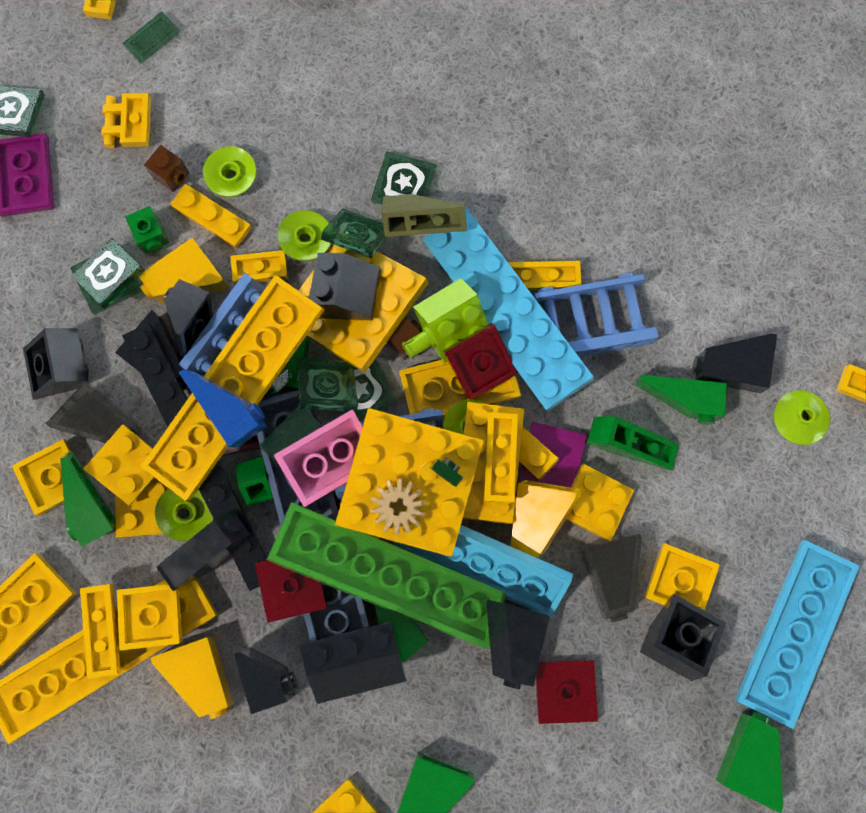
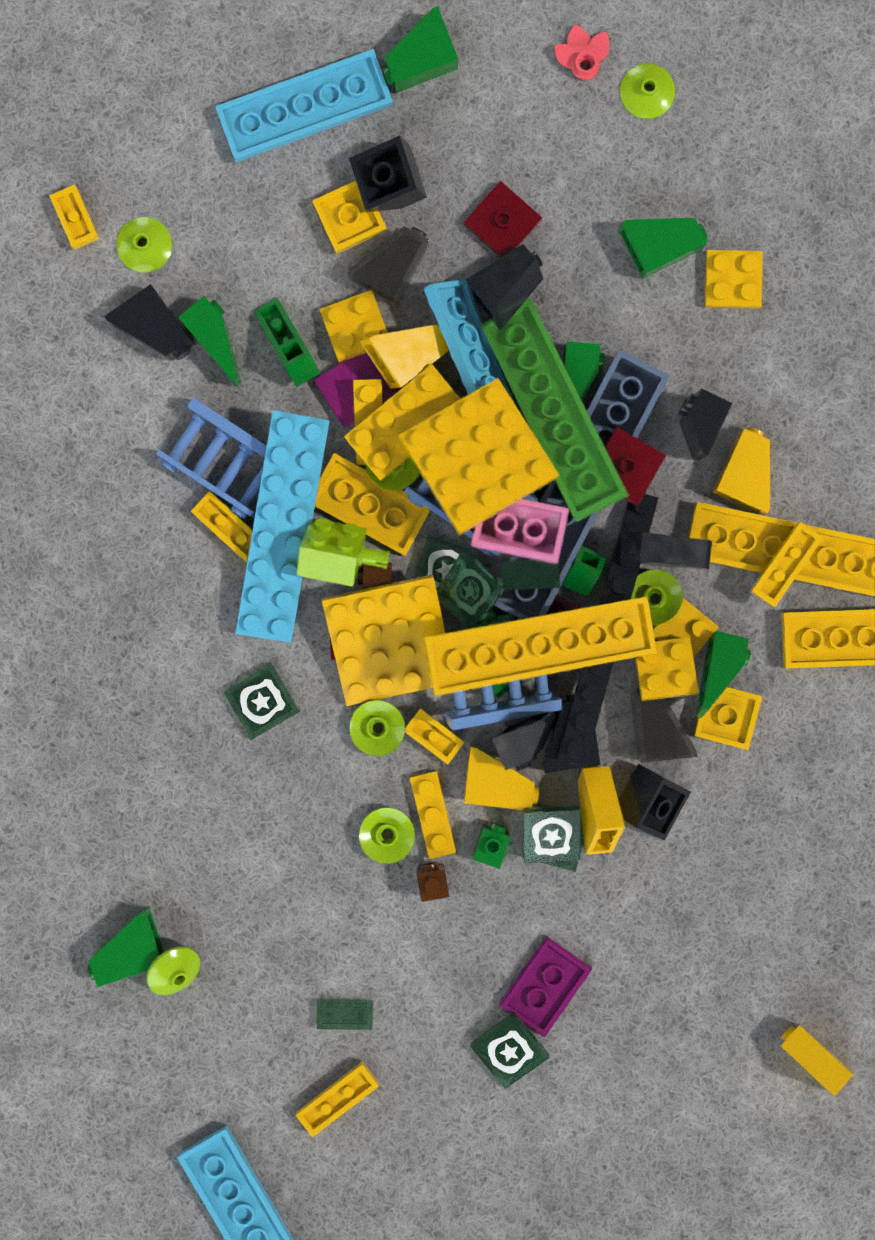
camera: 140 degrees left, 10 degrees up
(87, 321) = (599, 810): none -> yellow slope
(135, 120) = (421, 950): yellow plate -> none
(148, 617) = (744, 542): yellow plate -> none
(231, 414) = (560, 627): blue slope -> none
(344, 286) = (388, 650): black slope -> none
(353, 662) = (630, 373): black slope -> none
(355, 233) = (337, 691): clear green tile -> none
(392, 495) = (501, 454): tan gear -> none
(421, 215) = (279, 658): olive slope -> none
(447, 470) = (447, 433): dark green plate -> none
(480, 361) = (341, 501): dark red plate -> none
(500, 457) = (397, 414): yellow plate -> none

